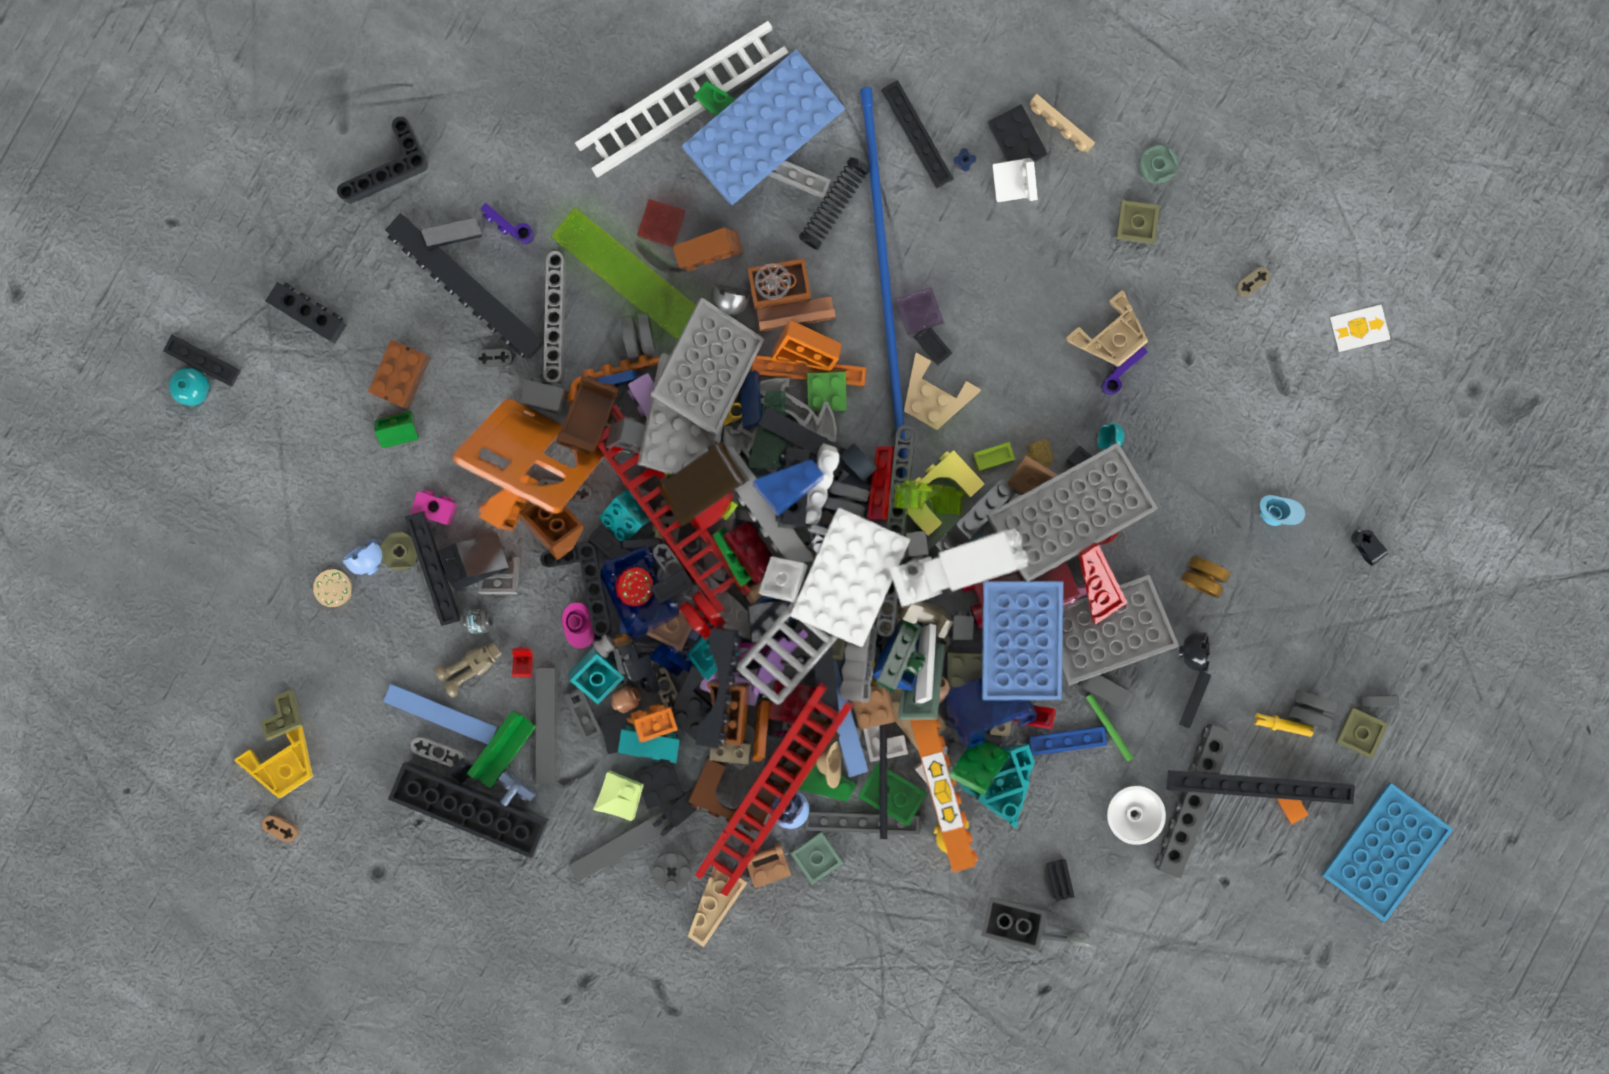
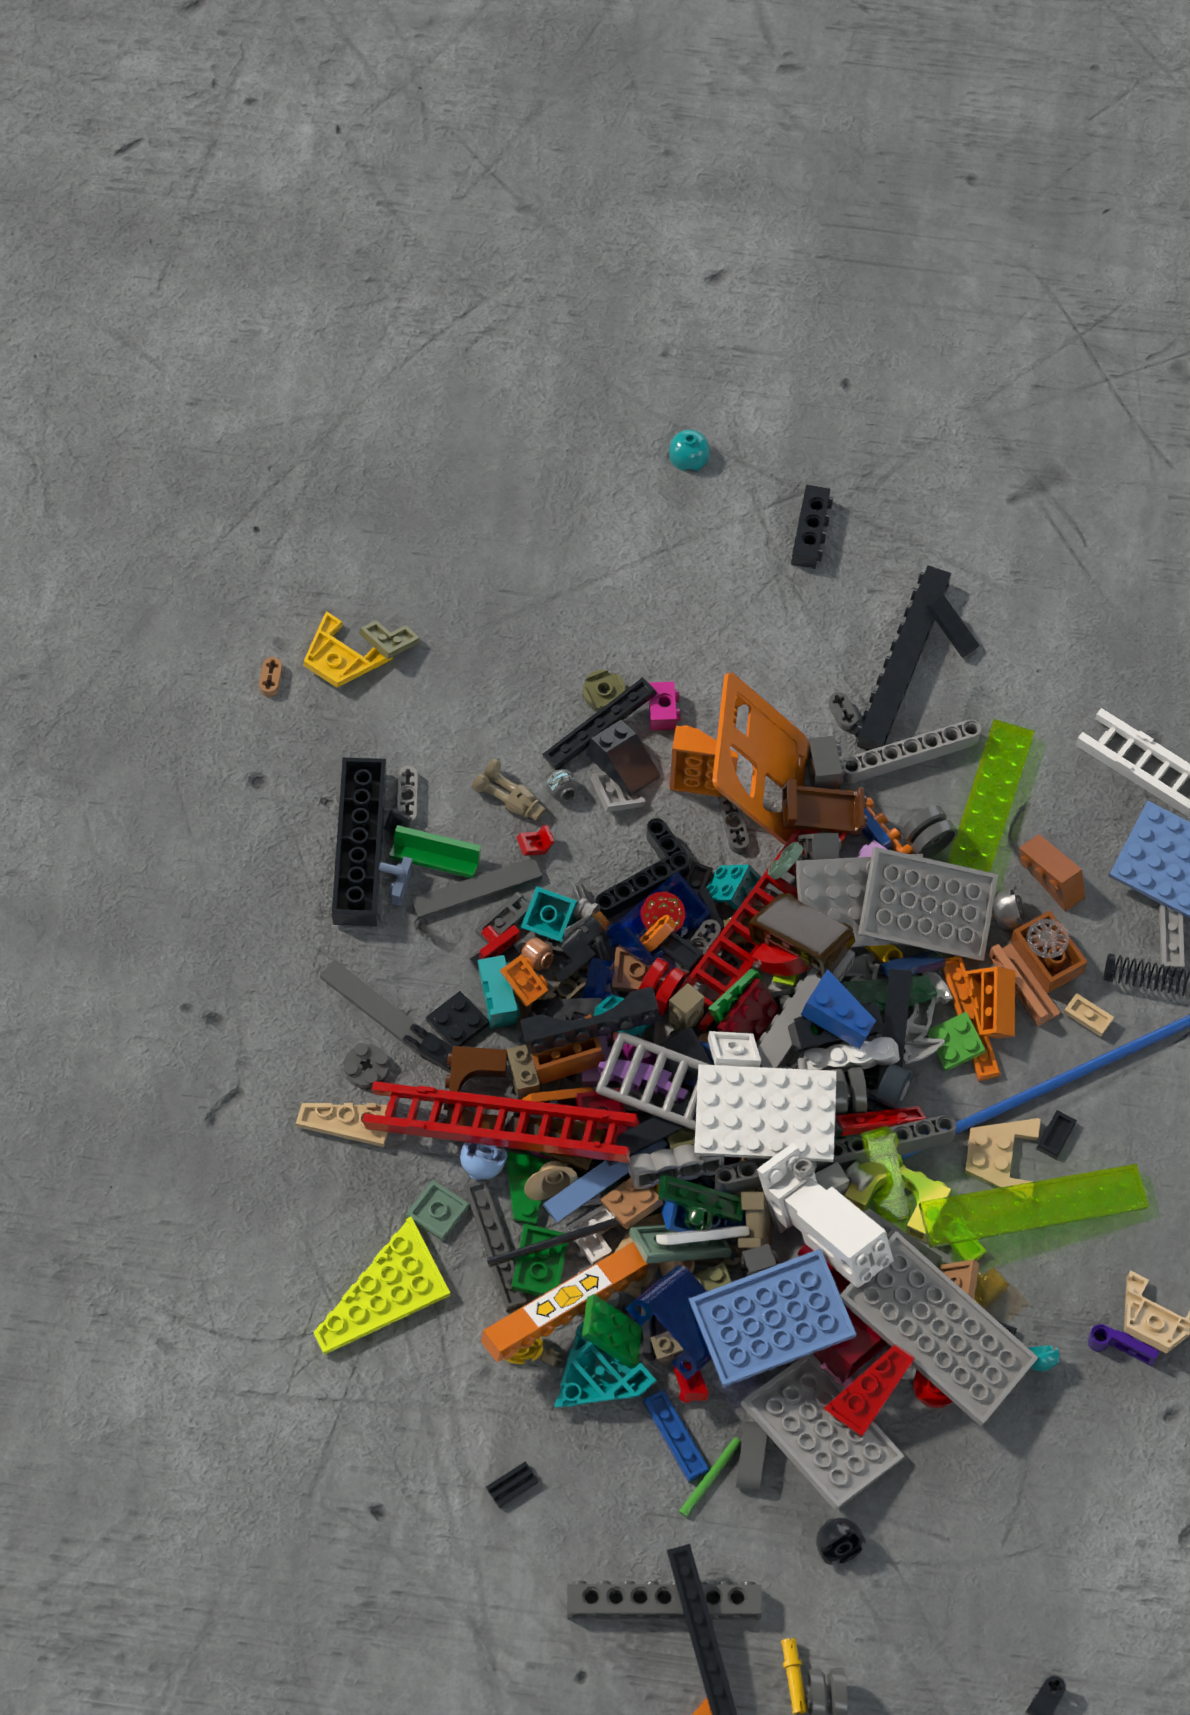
camera: 70 degrees right, 25 degrees down
(201, 360) = (720, 454): black tile -> none
(332, 588) = (539, 643): tan tile -> none
(364, 558) = (583, 658): light blue cylinder -> none
(389, 168) = (991, 552): black beam -> none
(396, 429) = (727, 645): green panel -> none
(399, 374) = (786, 628): dark orange piece -> none
(440, 714) = (448, 782): medium blue tile -> none
(505, 227) = (982, 675): dark purple plate -> none
(554, 530) = (694, 815): dark orange slope -> none
(577, 625) = (597, 877): dark pink piece -> none
(604, 729) = (497, 942): none -> red tile
(619, 796) = (428, 984): yellowish green plate -> none
(631, 470) = (787, 859): none -> sand green tile
(652, 599) = (658, 932): none -> orange beam
(661, 223) = (1058, 818): clear red plate -> none
(730, 603) = (686, 1008): none -> dark tan brick
(769, 871) = (404, 1166): medium nougat plate -> none
(843, 275) = (1088, 1015): none -> tan plate
(869, 916) = (391, 1288): none -> neon yellow wing
(919, 311) = (1086, 1104): clear purple plate -> none
(920, 520) = (859, 1176): none -> light grey bush
(973, 814) = (551, 1357): none -> dark tan plate
(990, 391) = (1033, 1205): none -> clear neon green plate
(1024, 925) = (447, 1447): dark grey slope -> none
(1147, 822) = (623, 1520): white dish -> none
(1195, 699) = (781, 1560): black tile -> none
(1206, 576) = (932, 1514): pearl gold wheel -> none
(1281, 510) = (1042, 1575): medium azure piece -> none

